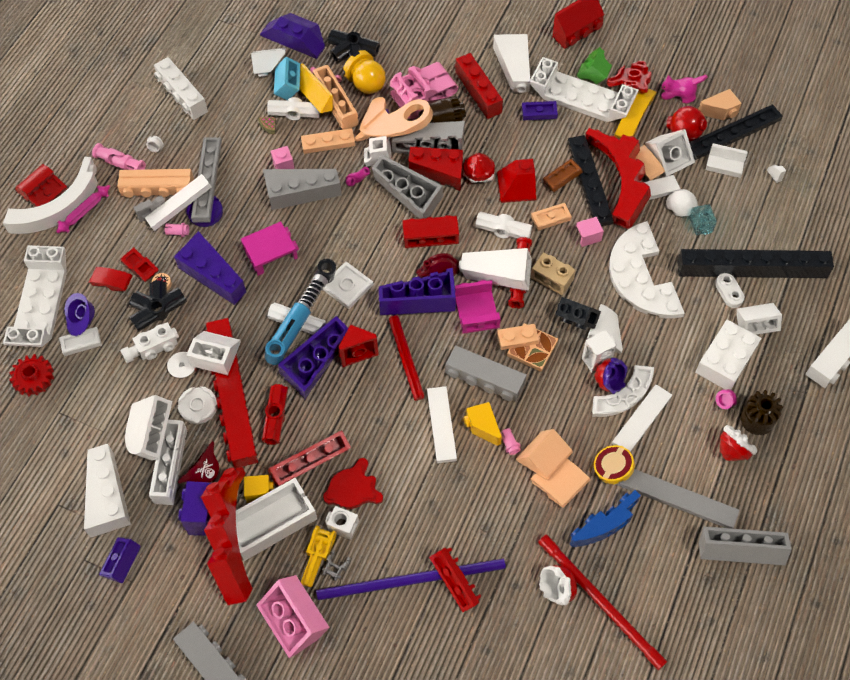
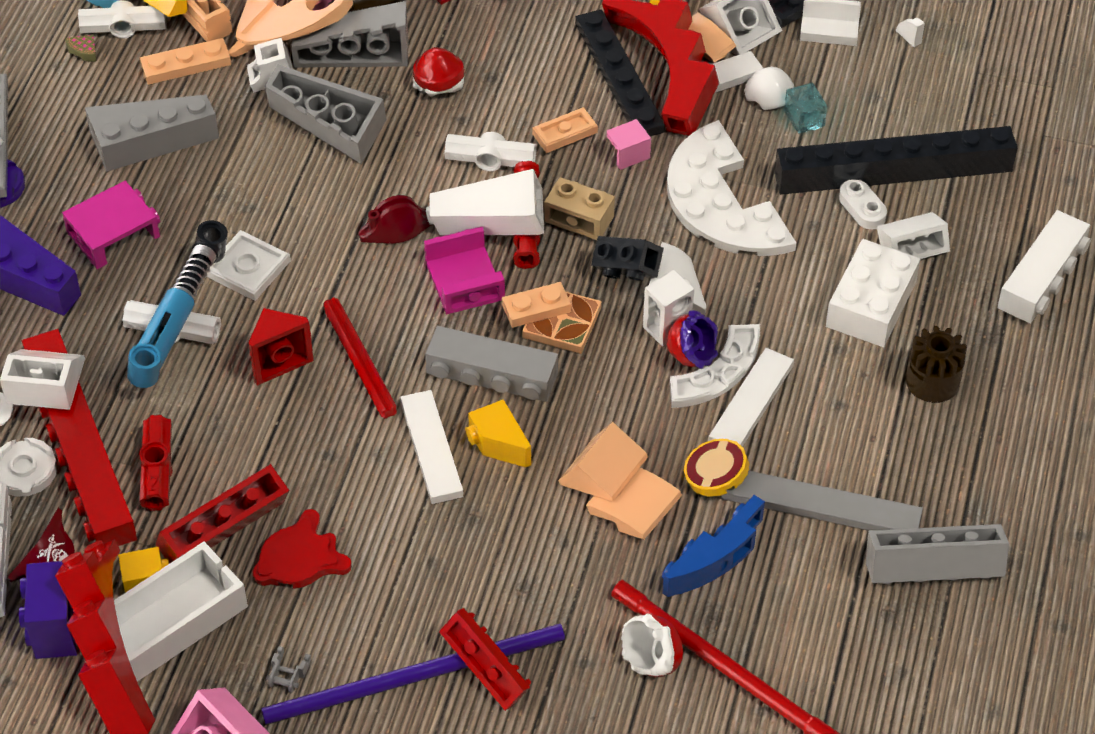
camera: 10 degrees left, 10 degrees down
(282, 158) = (113, 89): bright pink brick -> none
(313, 357) = (206, 372): dark purple wedge -> none
(318, 550) = (255, 649): yellow connector -> none
(346, 530) = (292, 616): white brick -> none
(357, 177) = (241, 107): dark pink arm -> none
(419, 295) = (367, 263): dark purple wedge -> none
(430, 231) = (373, 172): red brick -> none
(438, 164) = (375, 71): red wedge -> none
(512, 446) = (550, 463): bright pink pin -> none
(517, 181) = (503, 85): red slope -> none
(562, 175) = (574, 69): dark orange plate -> none
(726, 399) = (879, 355): tile -> none
(735, 446) = (902, 416): red hair -> none

